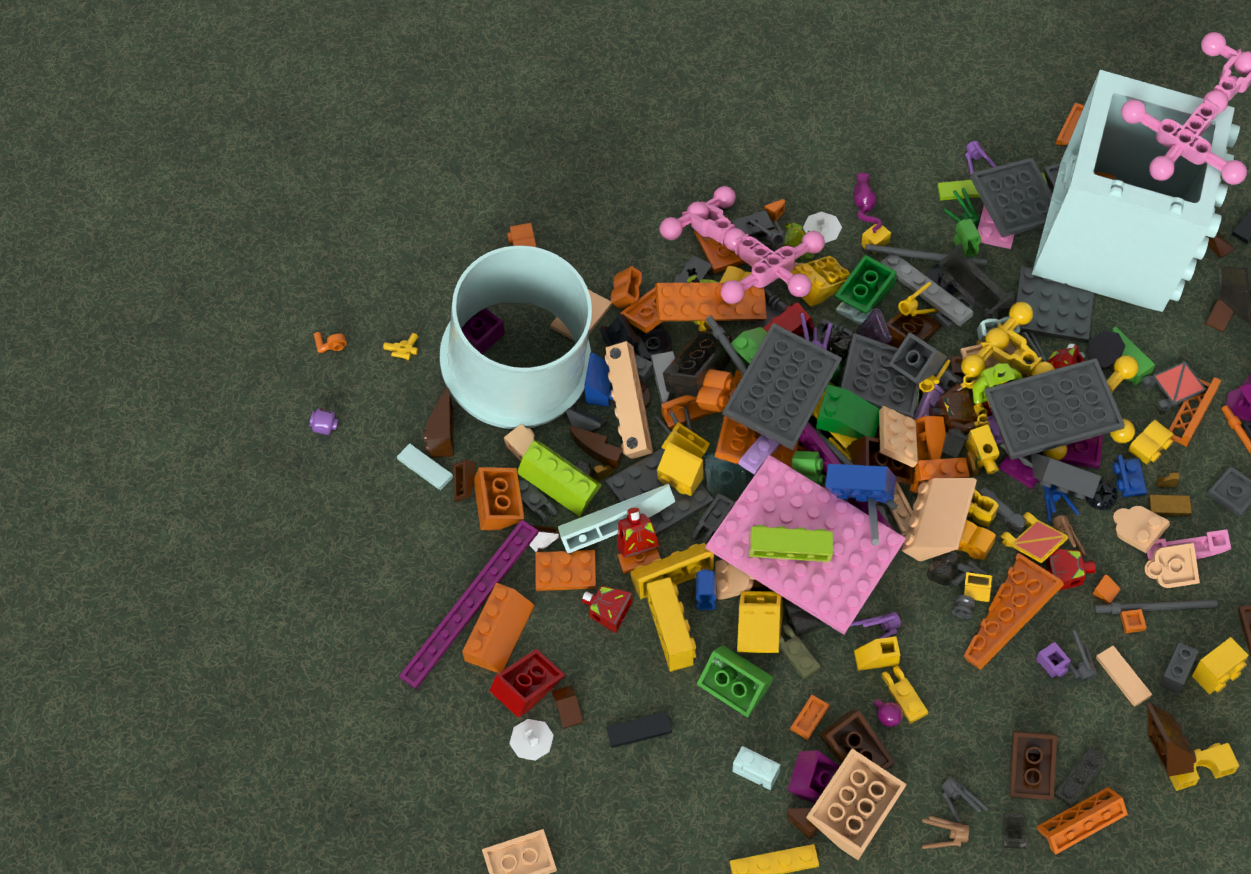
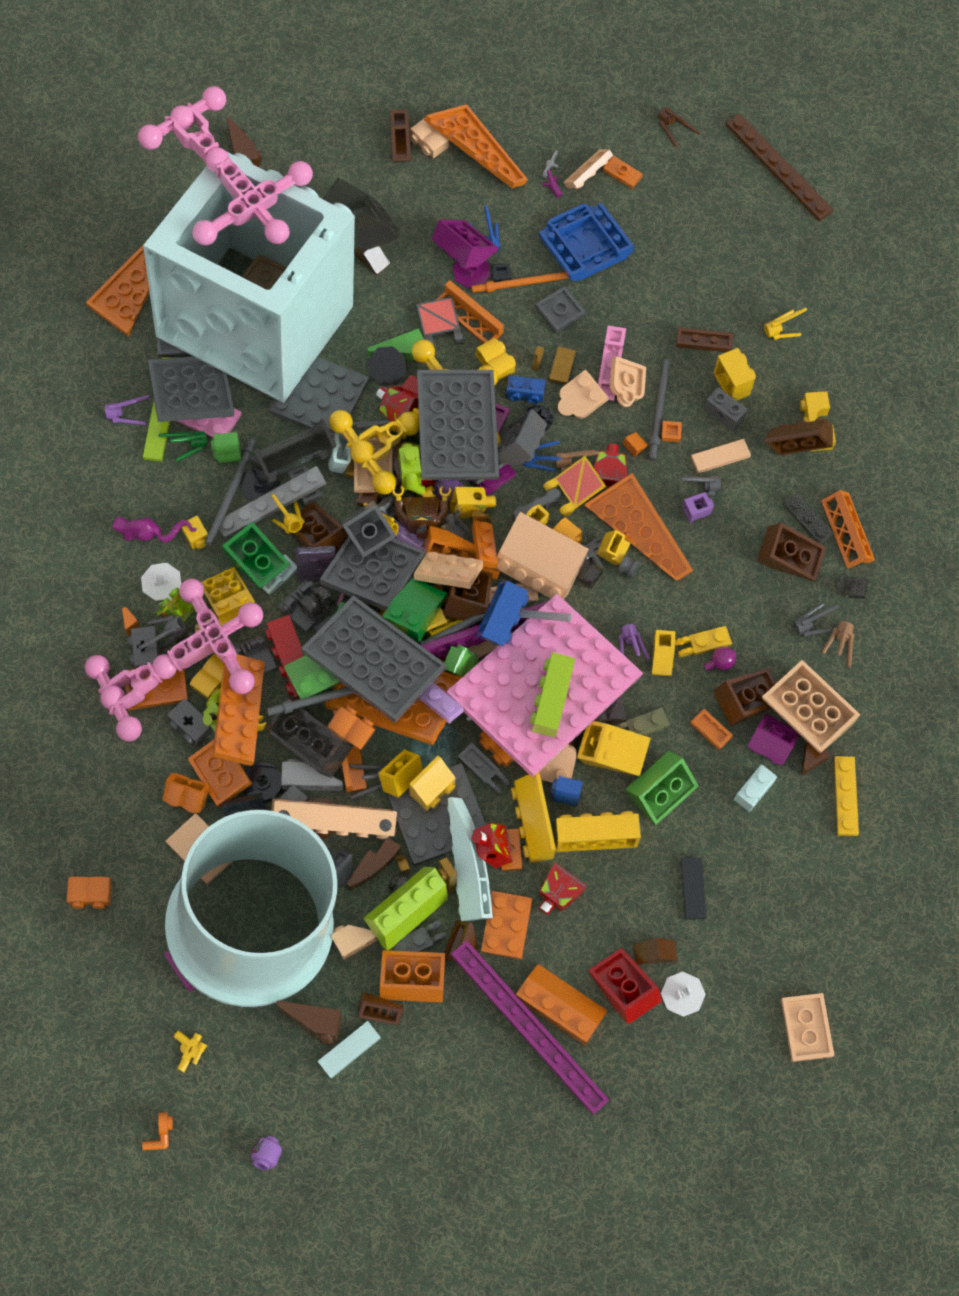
camera: 85 degrees left, 10 degrees up
(597, 501) = (448, 874): none -> pearl gold plate
(819, 343) = (319, 620): medium lavender plant -> none

